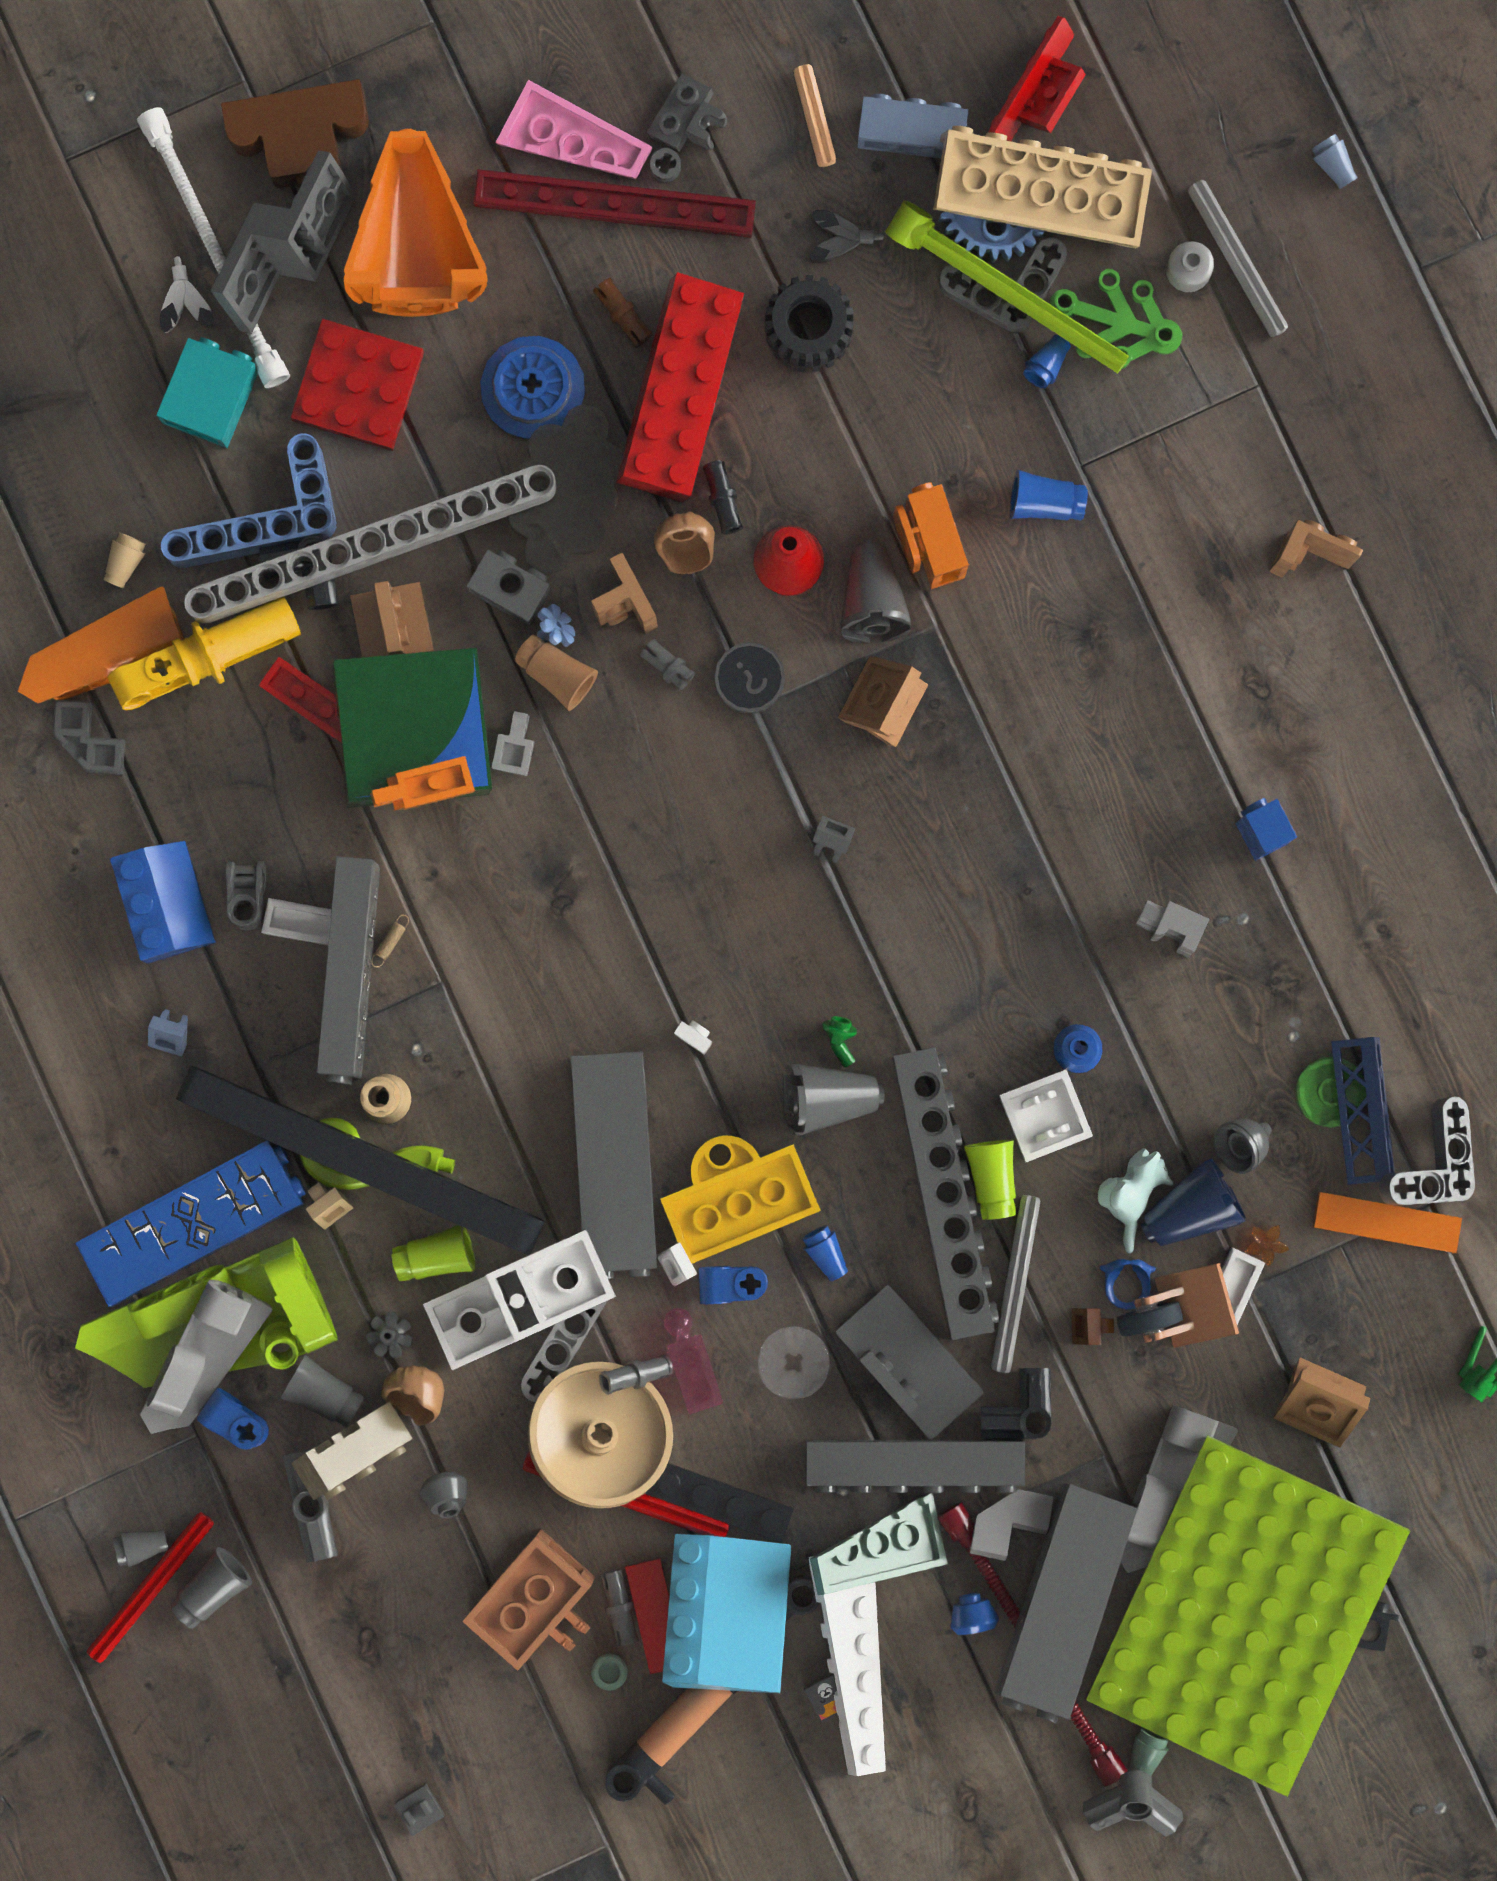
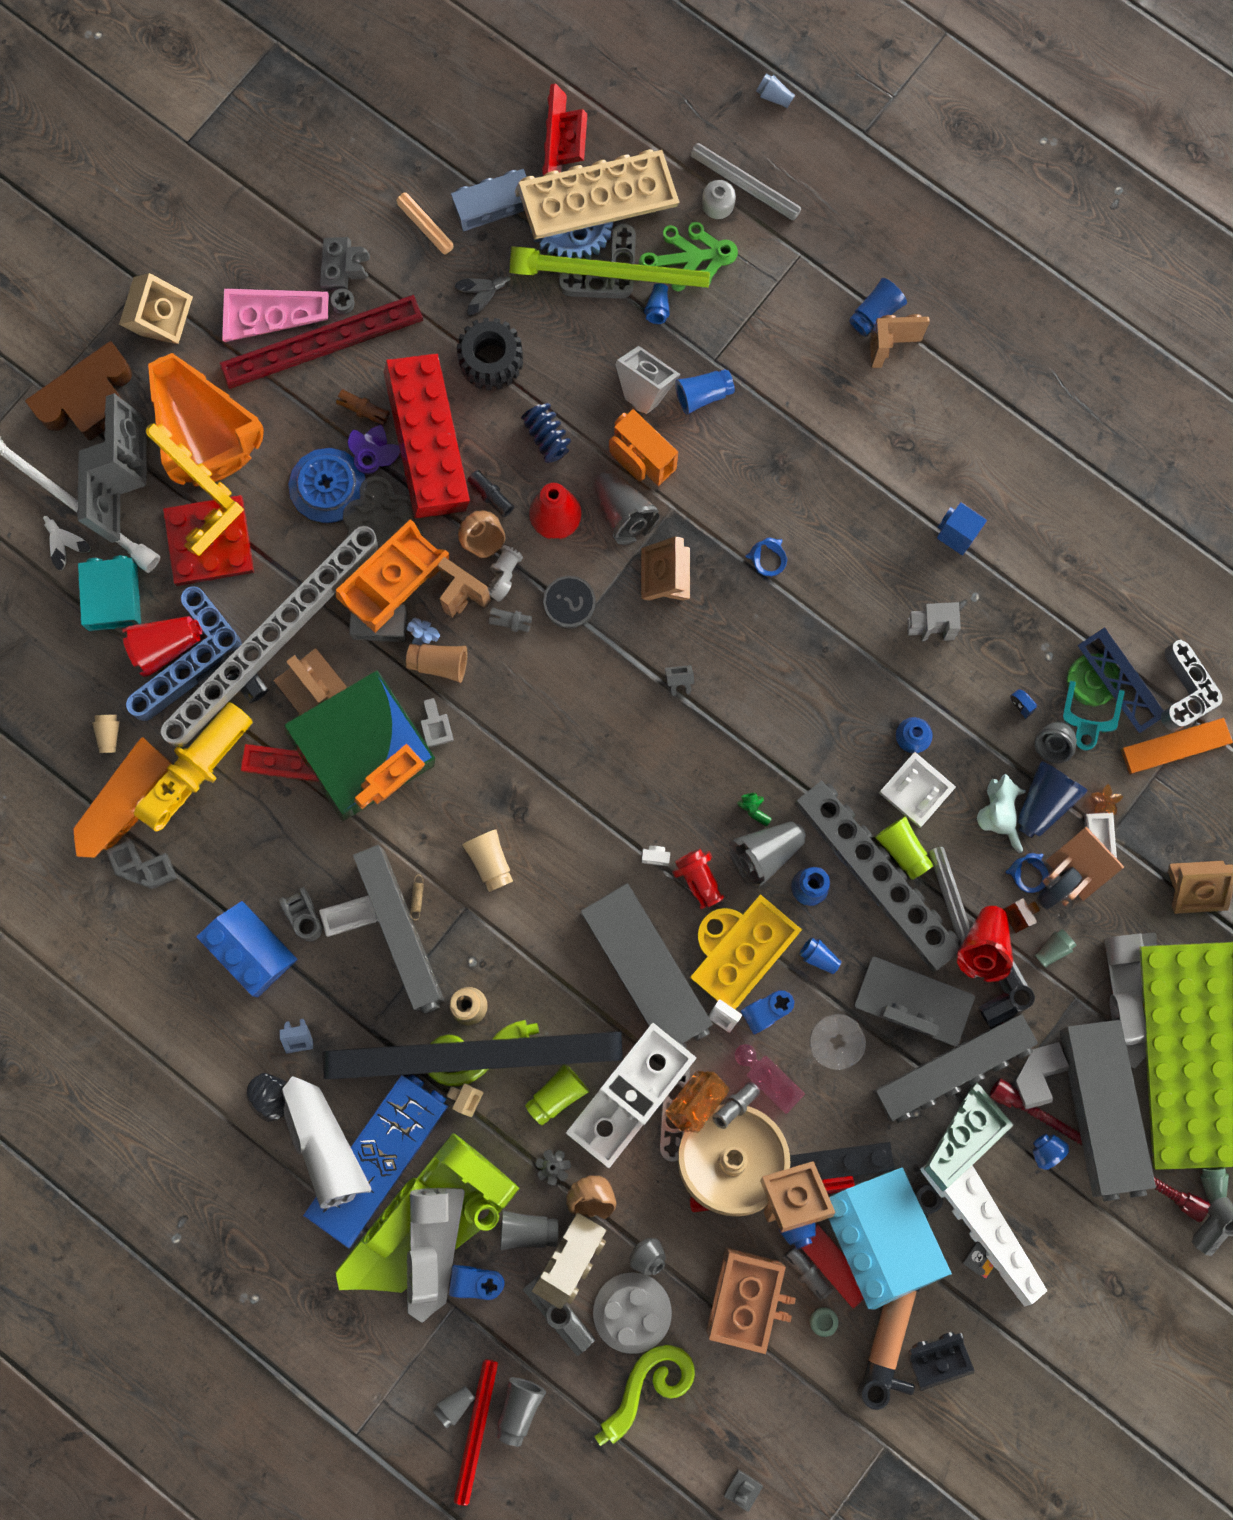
camera: 30 degrees left, 5 degrees down
(104, 1086) = (266, 1096): none -> black hair
(137, 1173) = (320, 1140): none -> panel
(237, 484) = (160, 642): none -> red cone
(322, 1660) = (620, 1422): none -> lime plant
(376, 369) = (215, 520): none -> yellow bracket
(395, 1547) = (632, 1312): none -> light grey piece
(433, 64) = (155, 309): none -> tan slope
(495, 941) = (489, 860): none -> tan plant
(549, 542) = (390, 576): none -> orange piece
(592, 1346) = (697, 1101): none -> clear orange brick
(611, 366) = (373, 446): none -> dark purple plate
(633, 1553) = (800, 1236): none -> blue cone
(647, 1514) = (796, 1197): none -> medium nougat bracket
(689, 599) = (503, 571): none -> light grey connector
(719, 1784) = (940, 1360): none -> black bracket
(731, 1087) = (699, 877): none -> red piece
(827, 456) = (545, 432): none -> dark blue piece
(844, 1164) = (804, 892): none -> blue plant
(981, 448) = (644, 379): none -> light grey slope
(1003, 734) = (755, 555): none -> blue piece
(1026, 1342) = (987, 946): none -> red cone
(1109, 1386) = (1055, 948): none -> sand green cone
(1229, 1077) = (1023, 703): none -> blue tile
(1288, 1146) = (1087, 727): none -> teal piece
(1314, 501) = (882, 301): none -> blue plant

